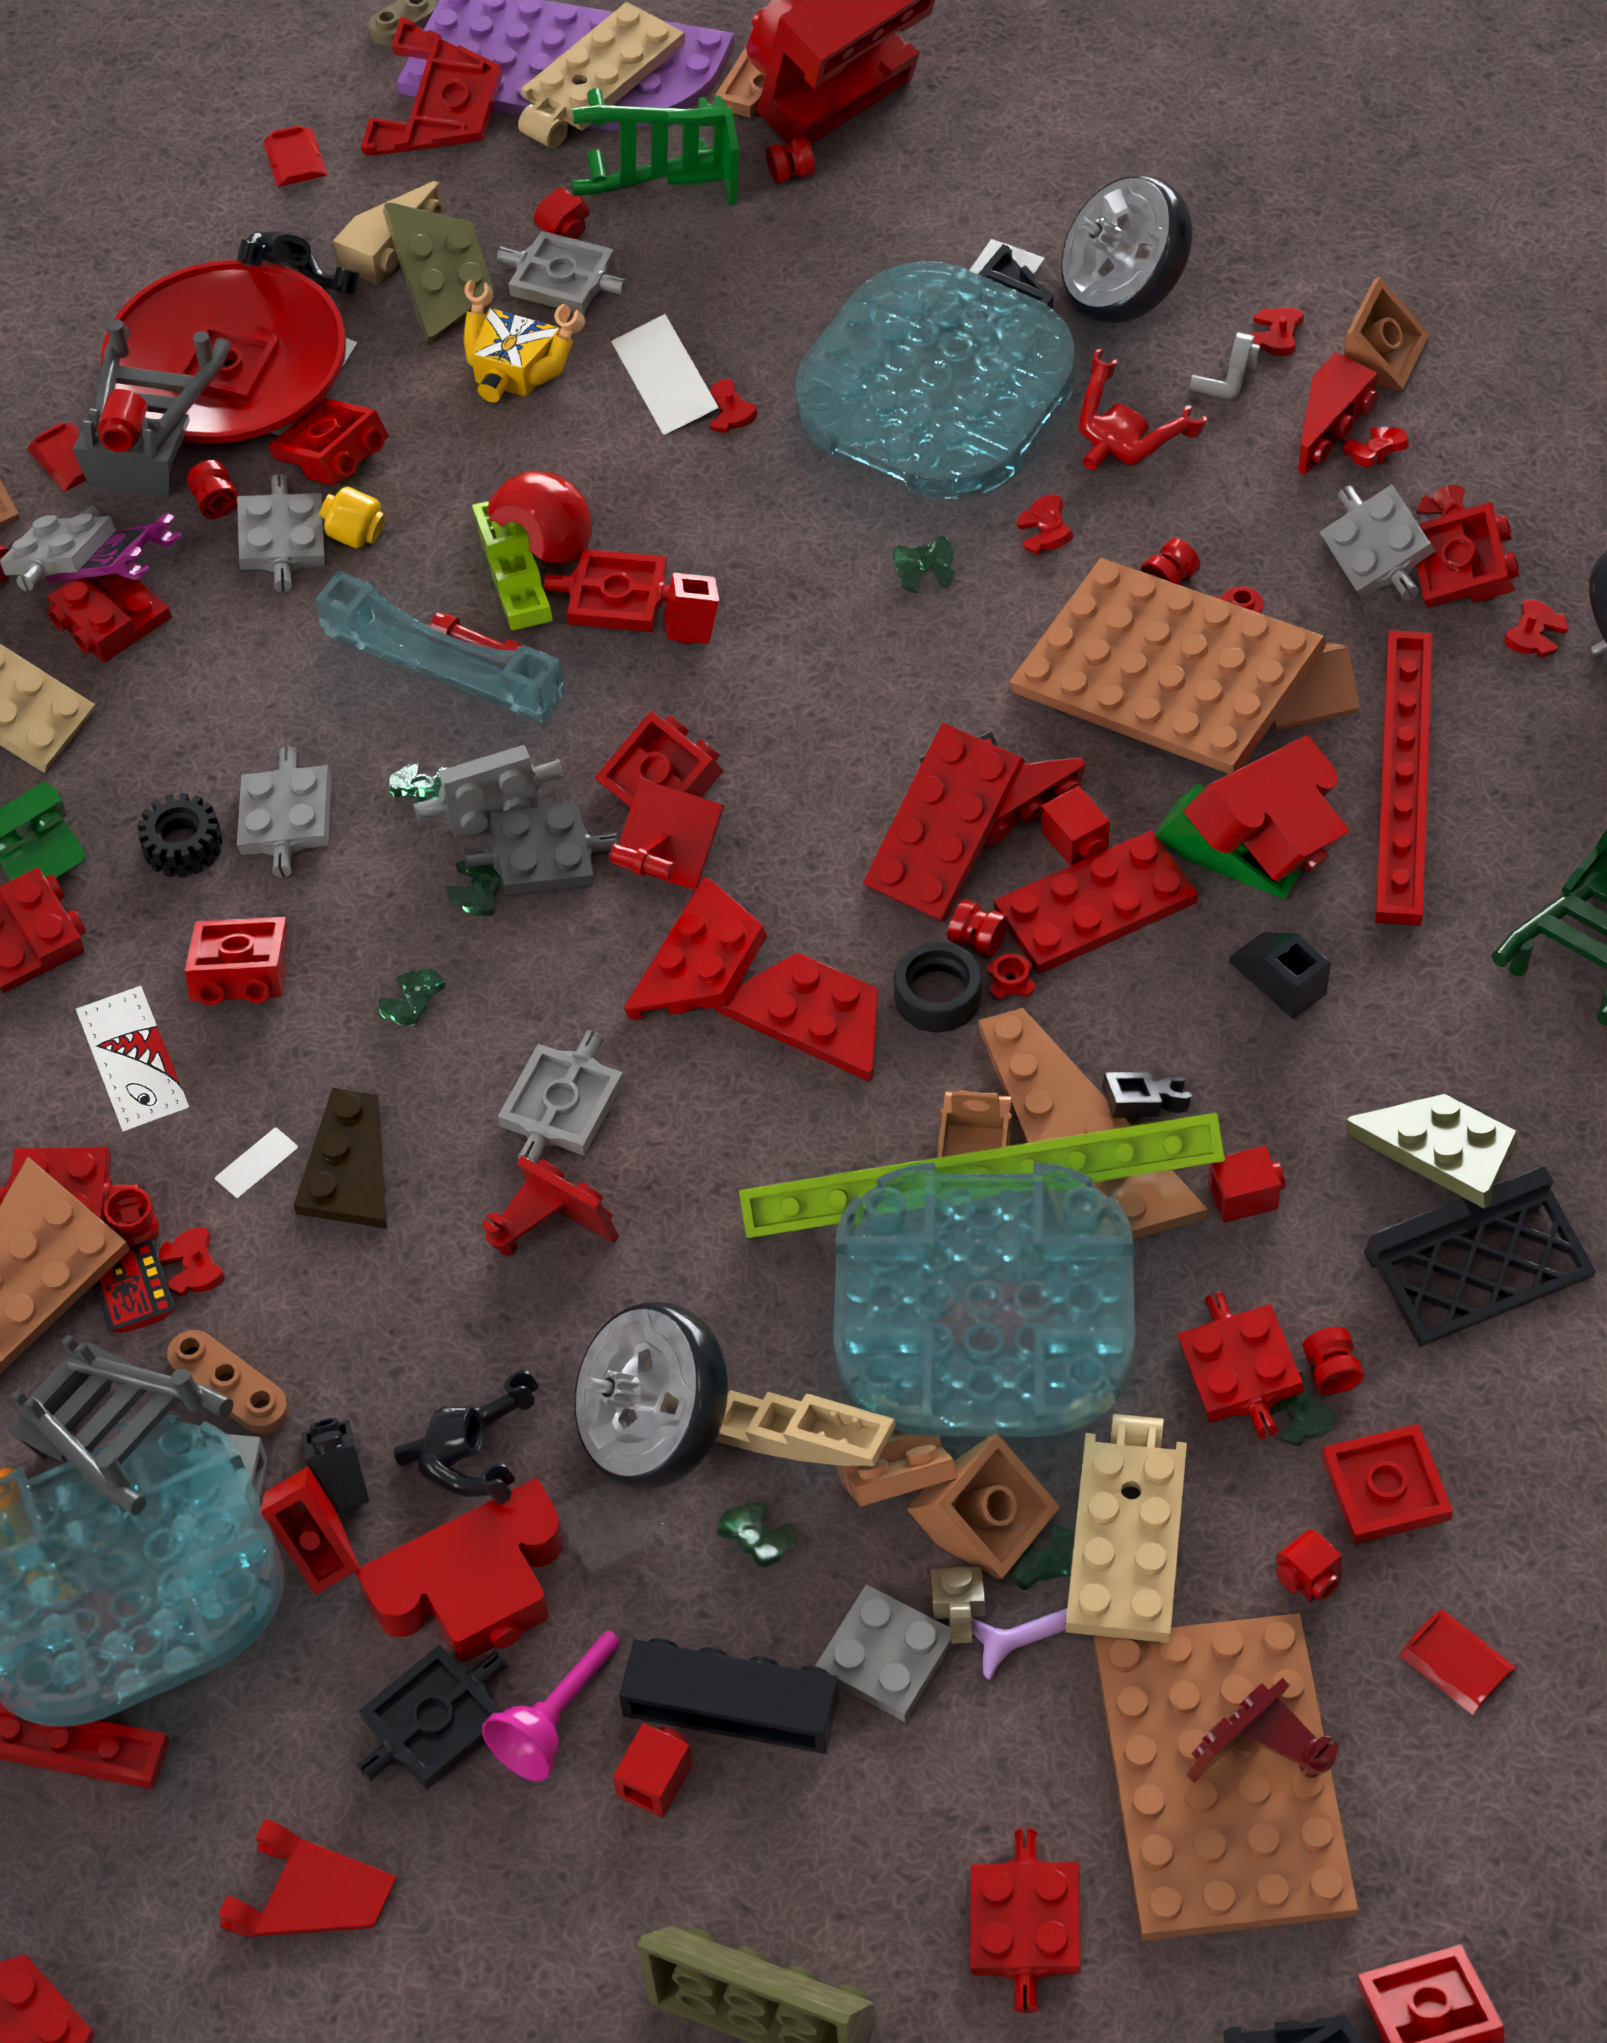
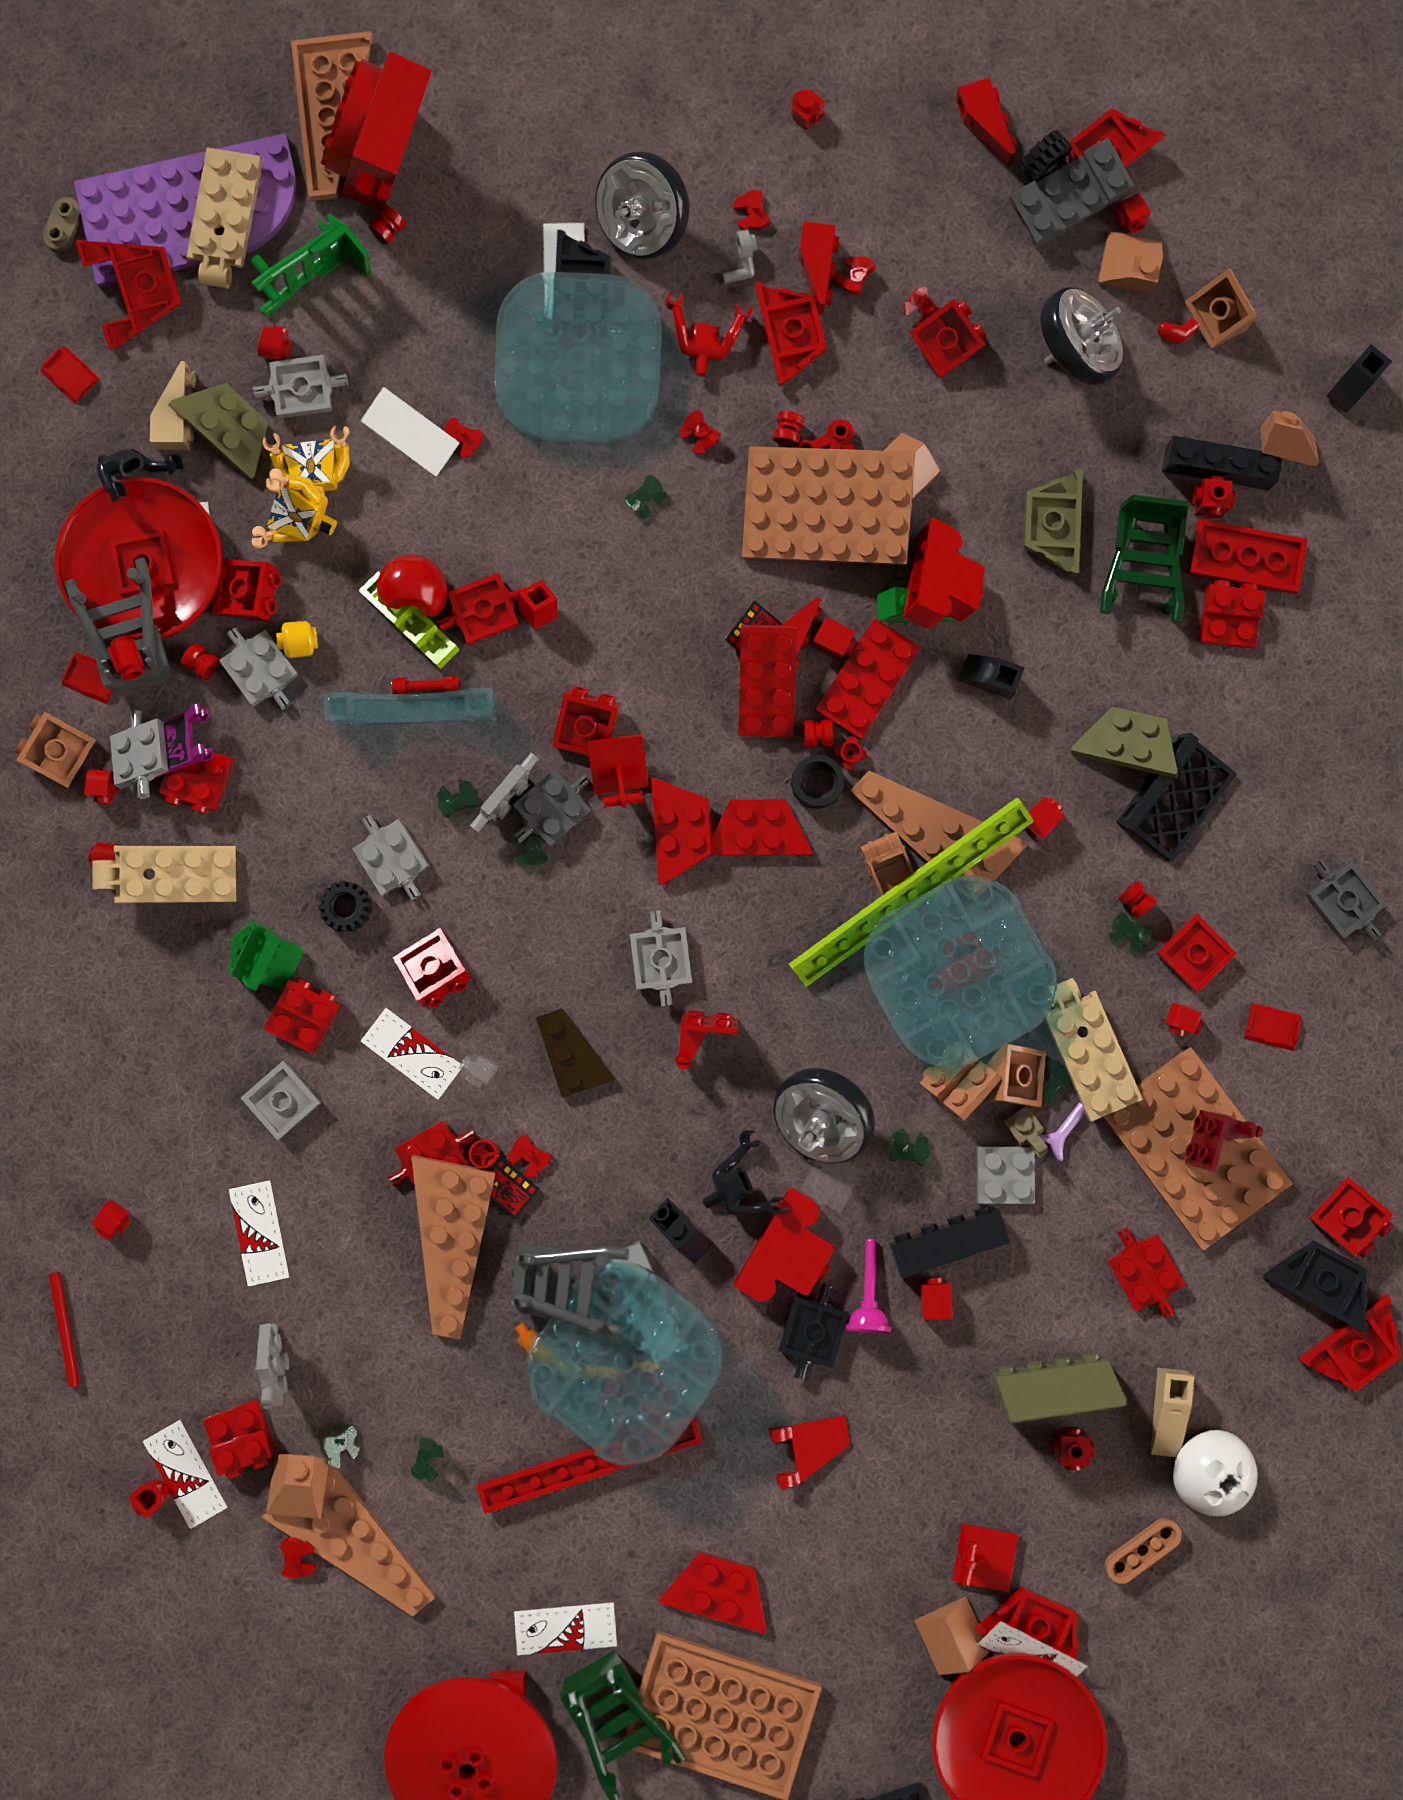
camera: 35 degrees left, 30 degrees up
(205, 1109) = (478, 1069): none -> clear plate
(244, 1388) = (606, 1208): nougat plate -> none
(256, 1162) = (521, 1078): white sticker -> none
(309, 1530) = (700, 1282): red slope -> none
(418, 991) = (543, 947): clear green piece -> none
(456, 376) = (296, 511): none -> torso
(805, 1429) = (912, 1089): tan slope -> none
(1140, 1096) = (959, 793): black plate -> none
(1240, 1364) = (1092, 924): red plate -> none
(1245, 468) = (790, 329): none -> red wing
(1377, 542) = (895, 350): light grey plate -> none
(1385, 337) = (822, 191): nougat slope -> none
(1404, 779) = (989, 507): red plate -> none
(1420, 252) = (807, 108): none -> red plate
(1492, 832) = (1054, 522): none -> olive wing
(1528, 636) = (1005, 355): red piece -> none

